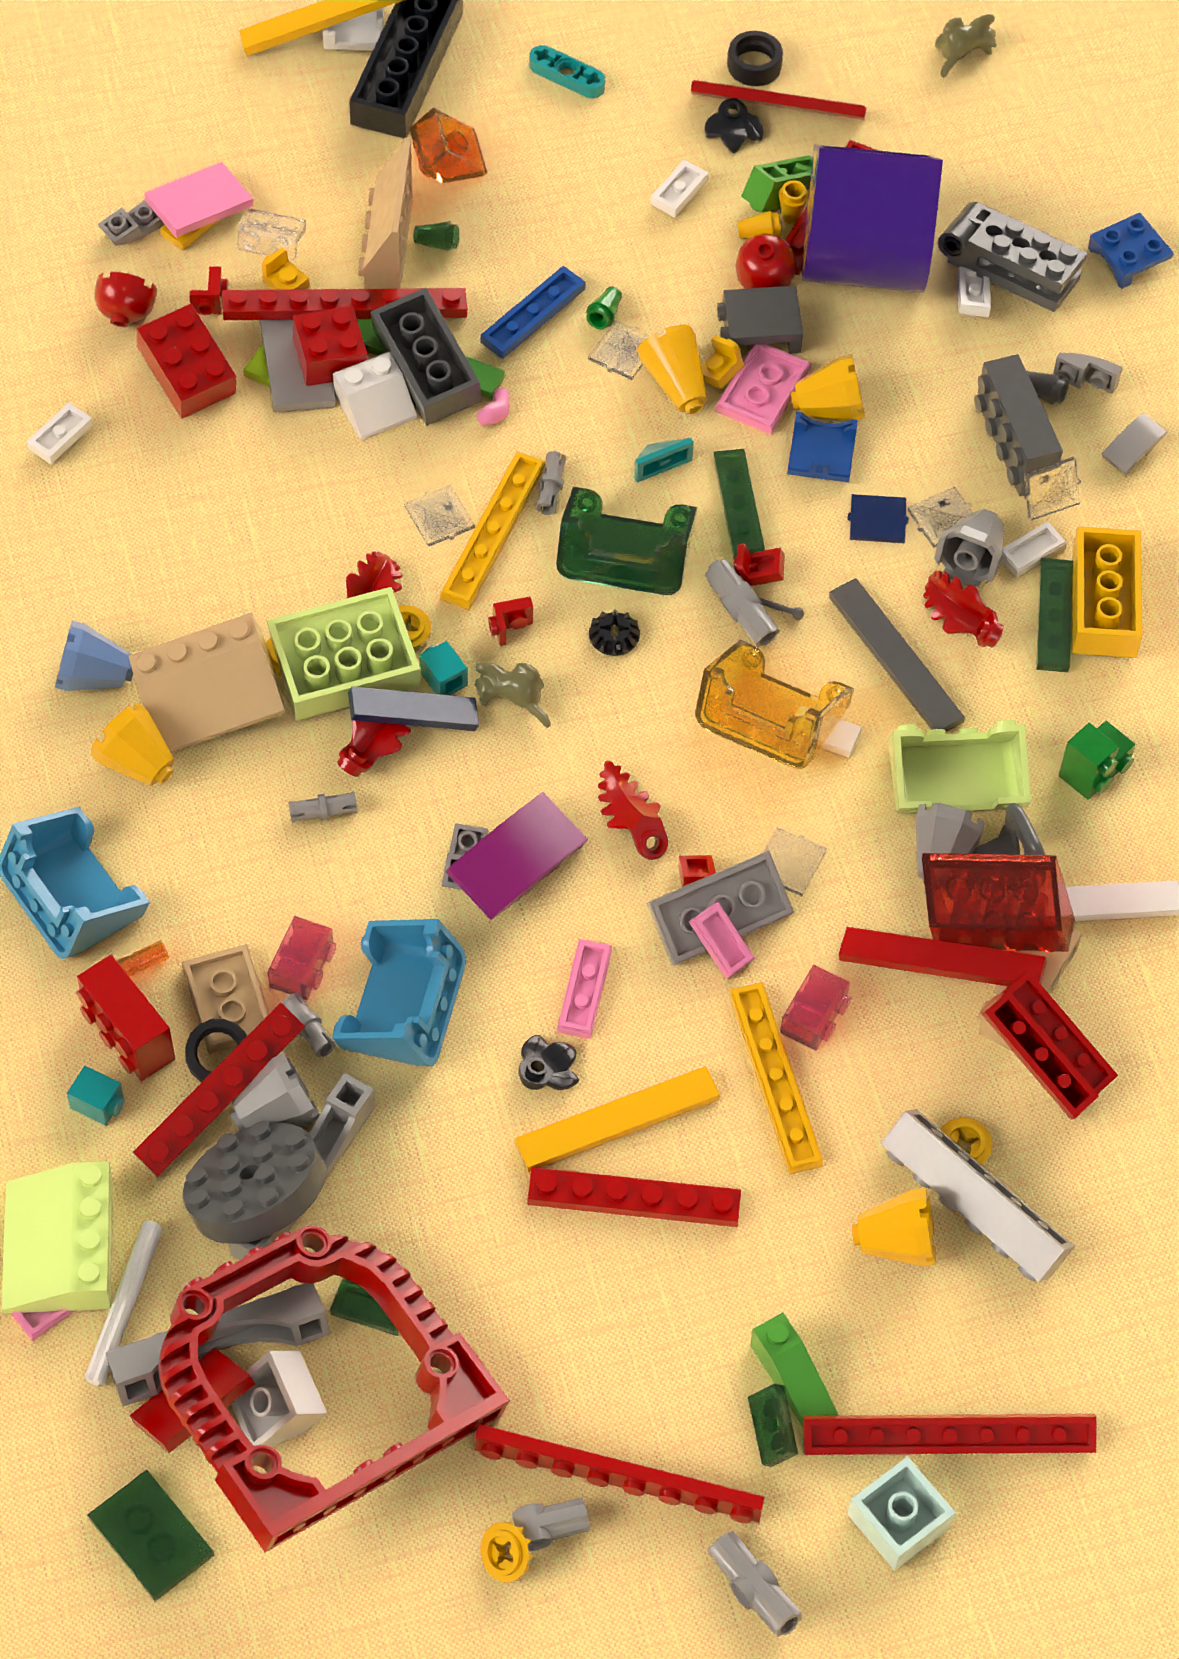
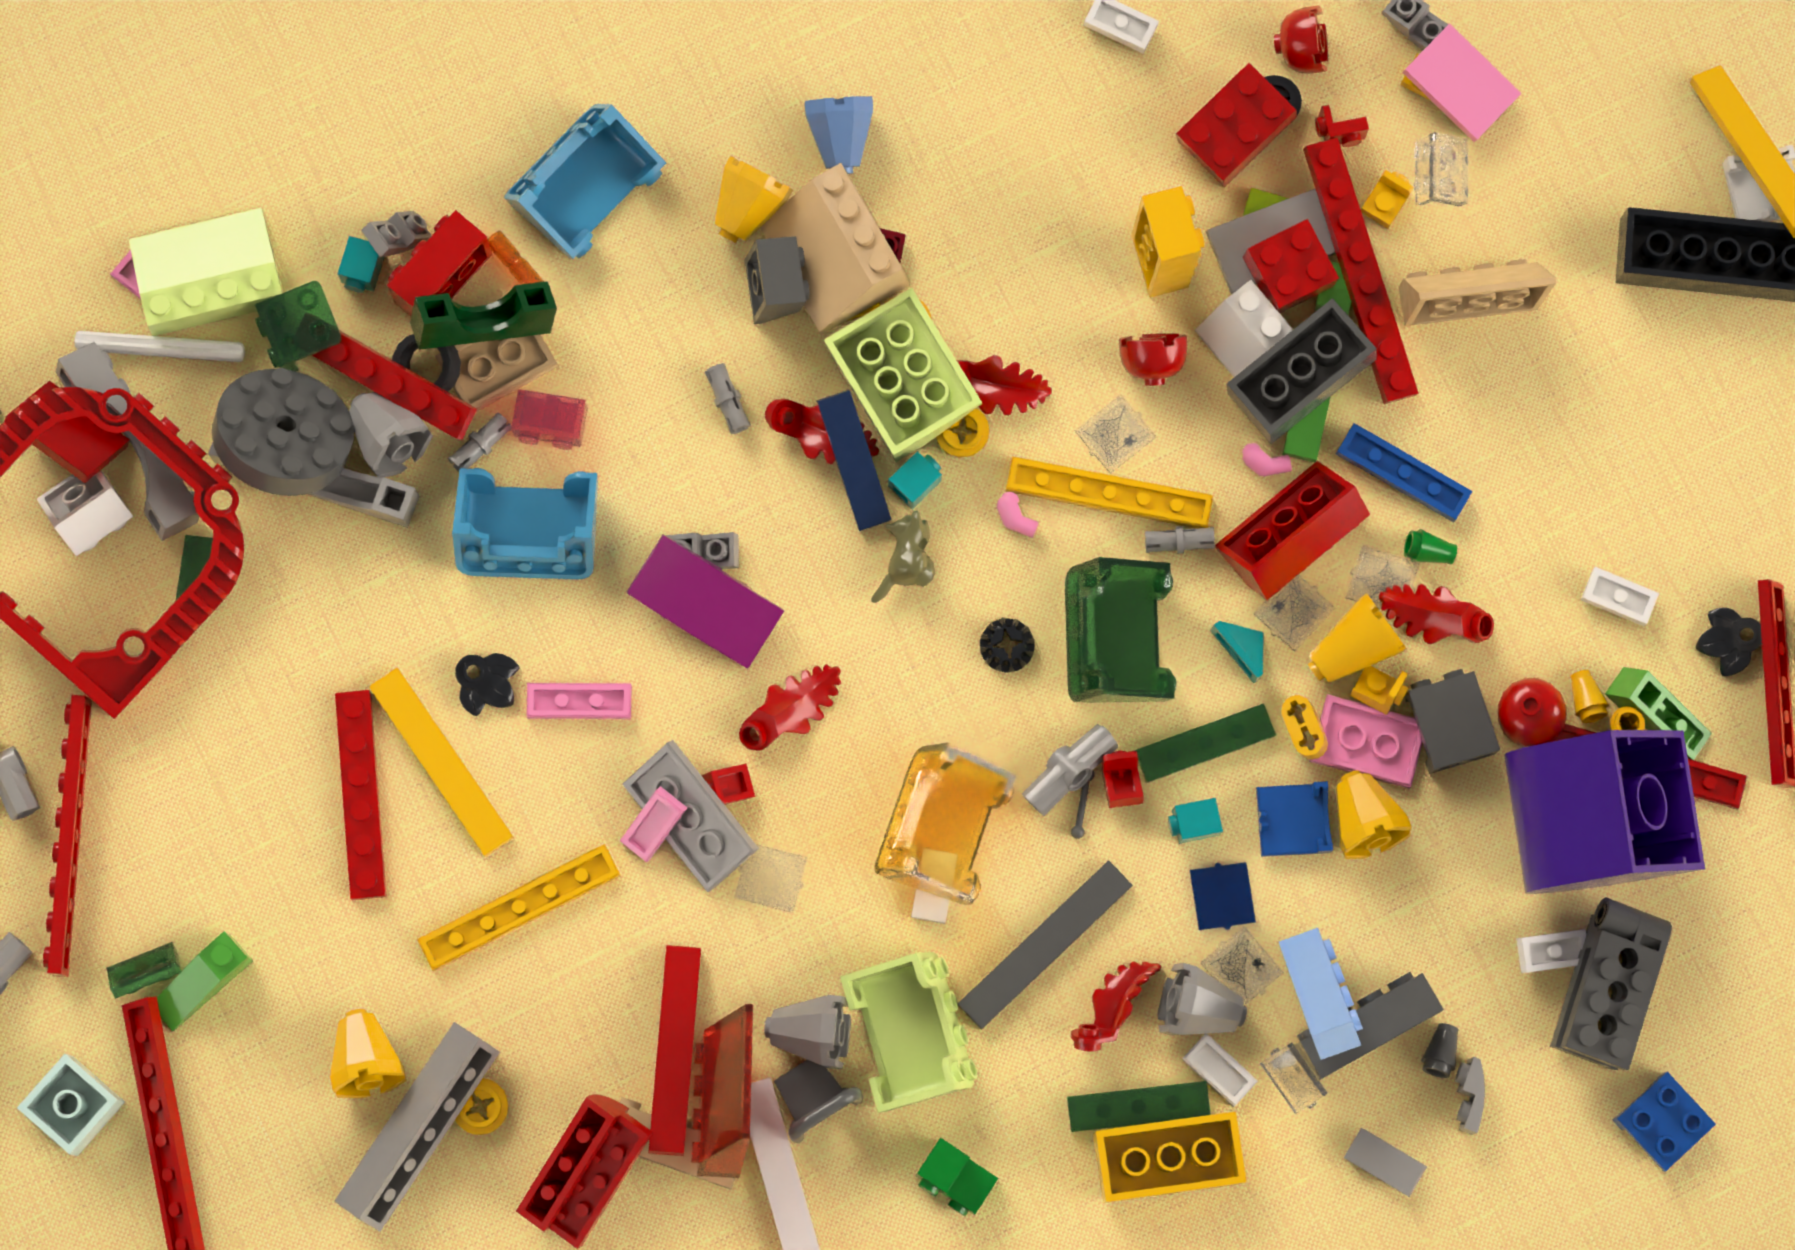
camera: 75 degrees right, 20 degrees up
(75, 1052) = (397, 234): none -> light grey slope
(145, 1159) = (297, 324): none -> clear green bracket
(189, 1004) = (520, 313): none -> dark green arch
(221, 738) = (776, 278): none -> dark grey slope
(285, 415) = (1167, 241): none -> yellow brick
(379, 464) = (1153, 356): none -> red cylinder
(437, 235) = (1483, 348): clear green cone -> none
(447, 148) = (1607, 331): clear orange slope -> none
(484, 603) = (1012, 517): none -> bright pink arm
(510, 614) = (999, 536): red bracket -> none
(563, 397) = (1293, 529): none -> red slope
(581, 81) = (1762, 463): teal beam -> none
(634, 417) = (1294, 612): none -> clear piece
(664, 309) = (1435, 614): none -> red plant
(740, 417) = (1311, 724): none -> yellow beam
(808, 518) = (1195, 821): none -> teal brick
(815, 1007) = (598, 933): clear pink brick -> none
(986, 439) = (1320, 994): none -> light blue brick

